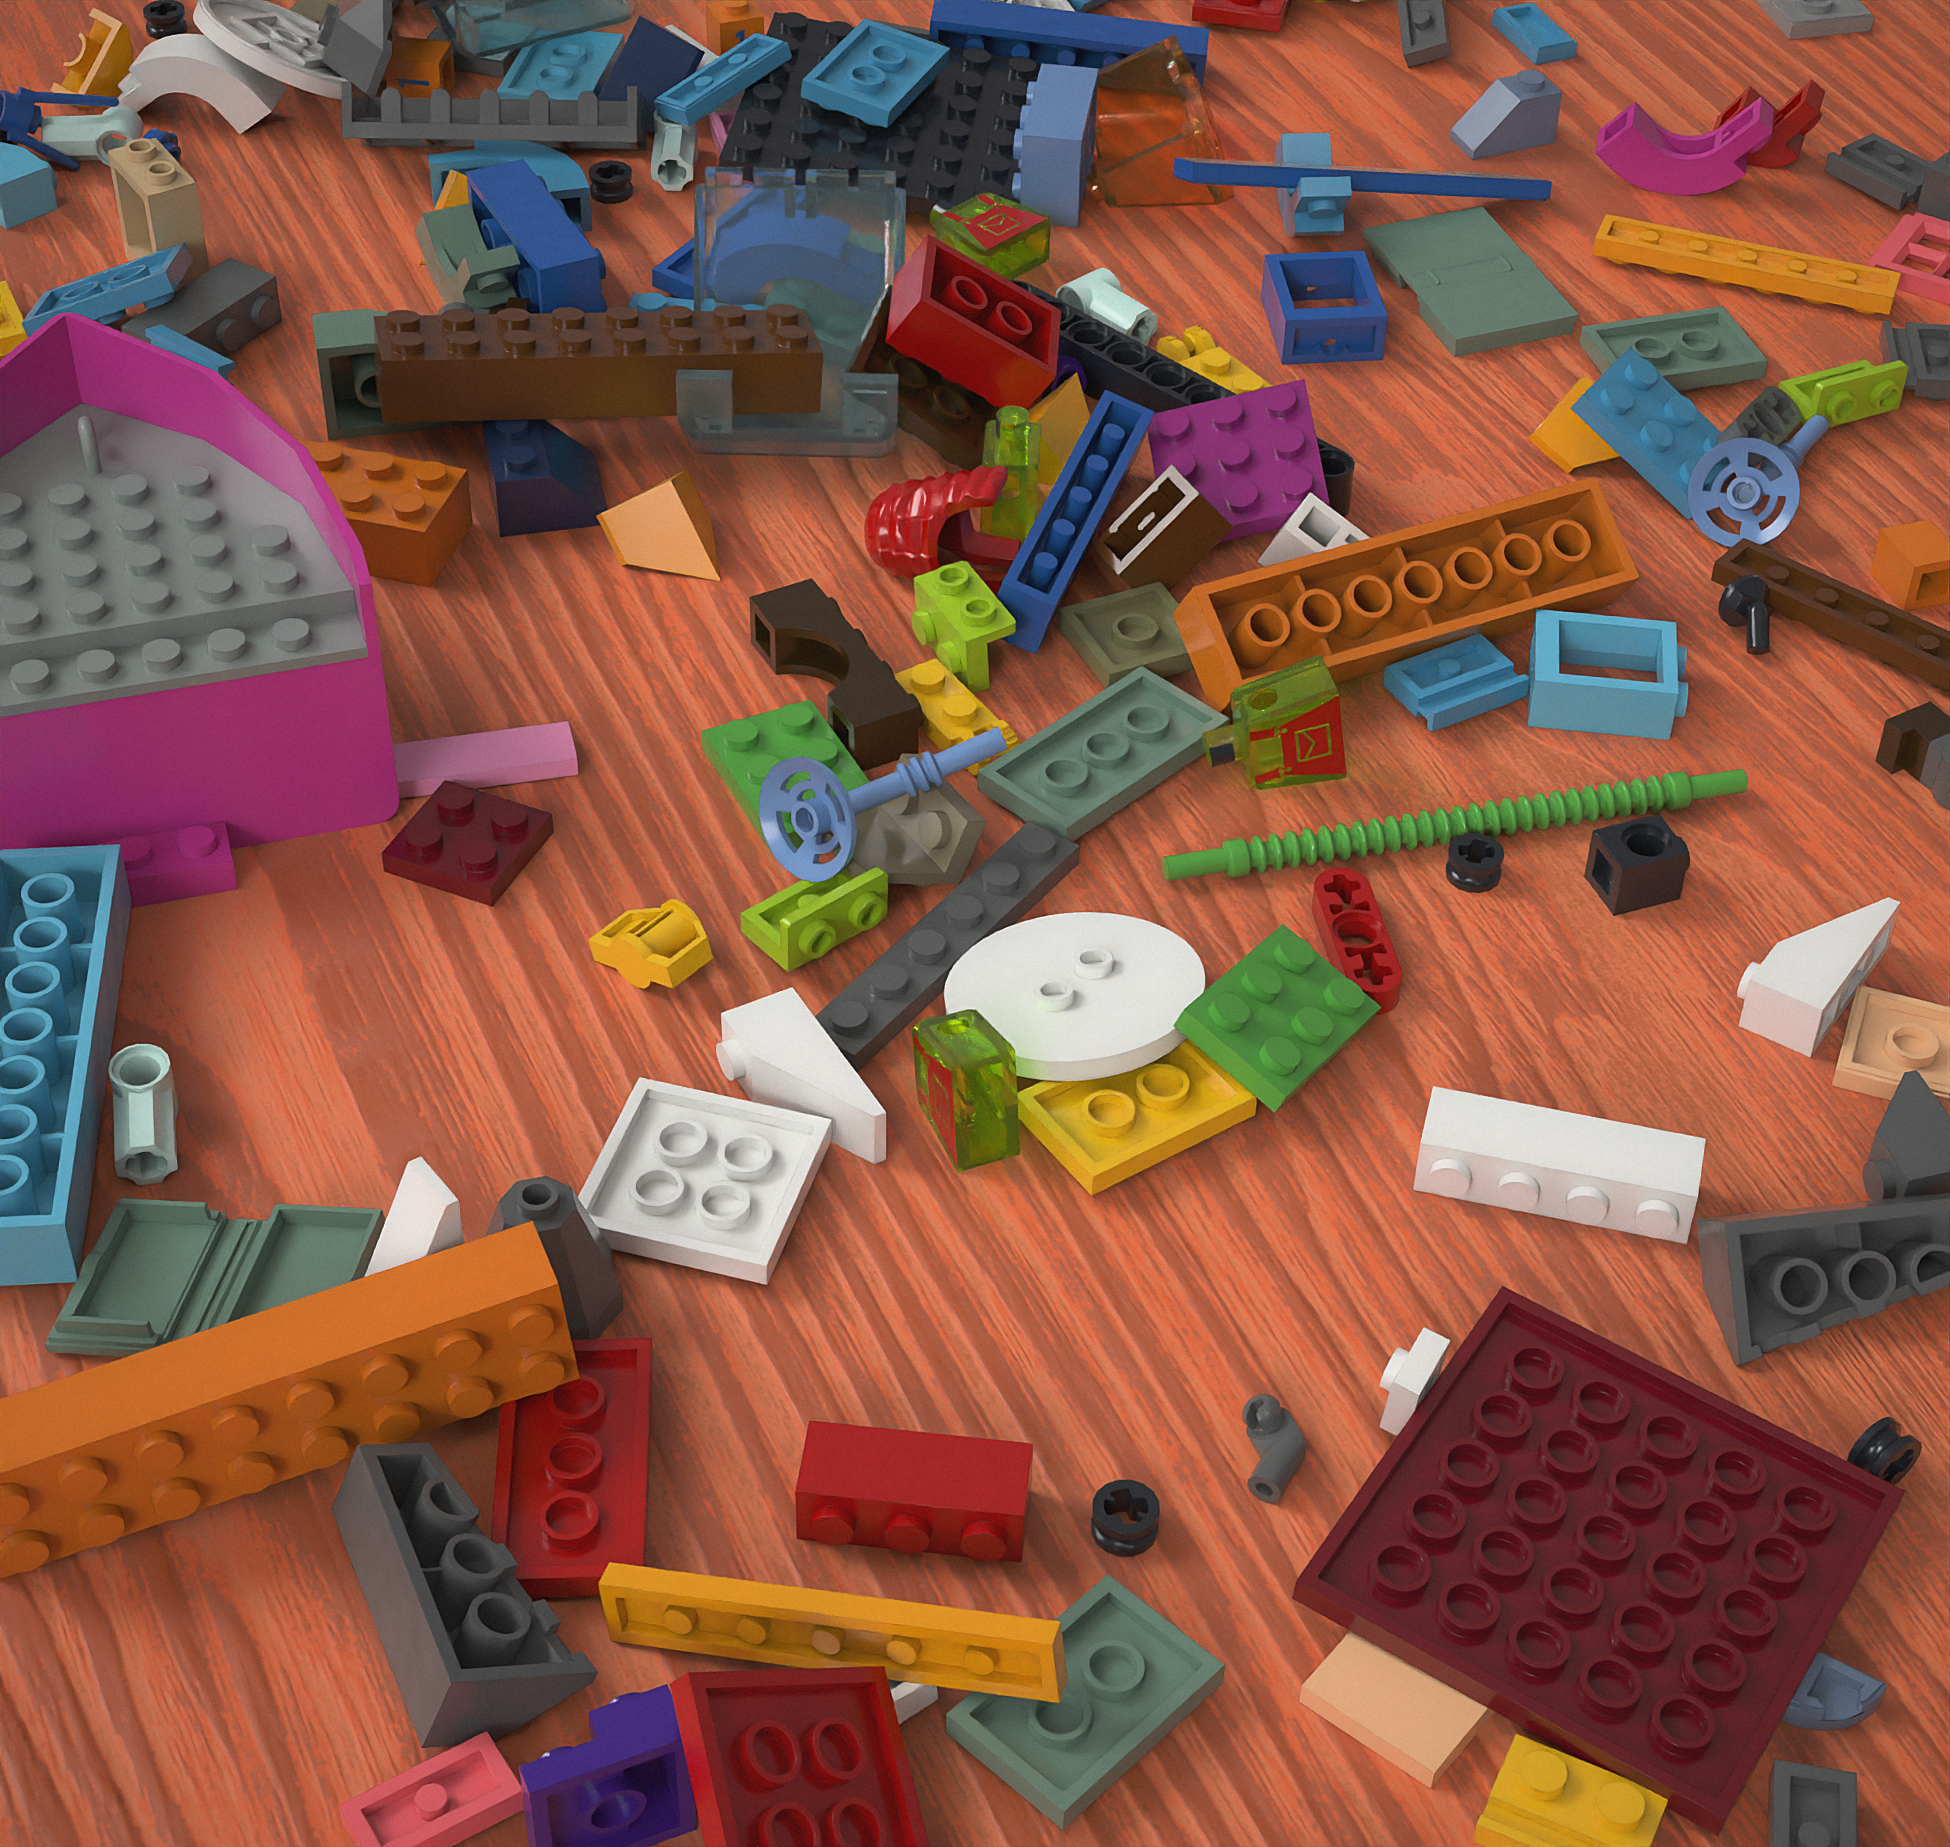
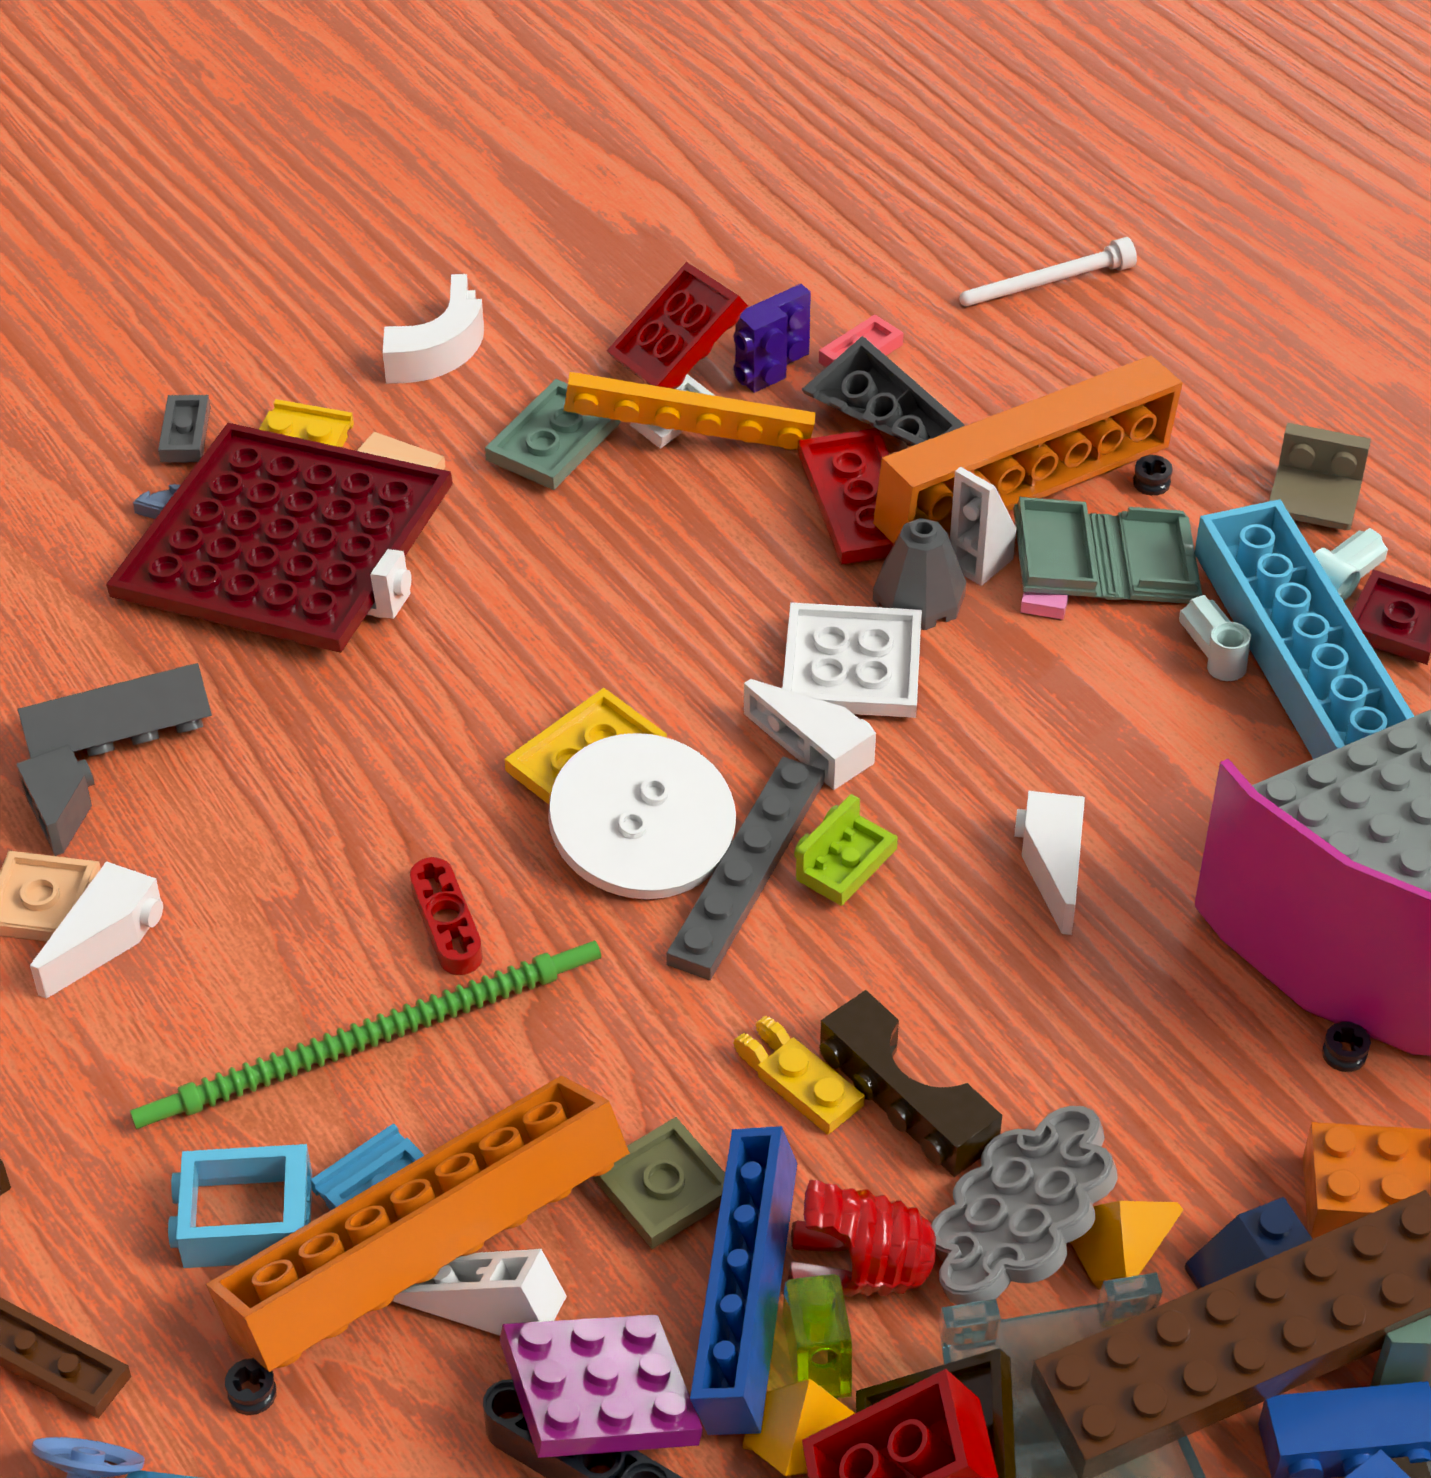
camera: 170 degrees right, 5 degrees up
(468, 843) = (1128, 889): dark red plate -> none
(485, 759) = (1155, 964): bright pink tile -> none
(533, 887) = (1052, 850): none -> white slope
(654, 945) = (958, 800): yellow piece -> none
(752, 746) = (917, 987): bright green plate -> none
(756, 537) = (1023, 1205): none -> light grey plate
(828, 812) = (859, 866): medium blue dish -> none
(914, 1491) = (667, 505): red brick -> none
(918, 837) = (812, 913): dark tan bracket -> none
(958, 619) = (817, 1135): lime bracket -> none
(963, 1064) = (702, 718): clear neon green torso -> none
(1101, 755) = (667, 1043): sand green plate -> none
(1140, 1505) = (546, 532): black bush -> none
(1163, 533) = (658, 1266): reddish brown slope -> none
(1277, 1017) = (496, 809): bright green plate -> none
(1277, 1444) = (468, 570): dark grey arm -> none
(1283, 728) = (515, 1060): clear neon green torso -> none
(1486, 866) = (355, 988): black bush -> none
(1560, 1164) = (299, 750): white brick -> none
(1637, 864) = (228, 1003): black brick -> none
(1746, 604) = (104, 1318): black plate -> none
(1885, 1451) = (113, 609): black bush -> none

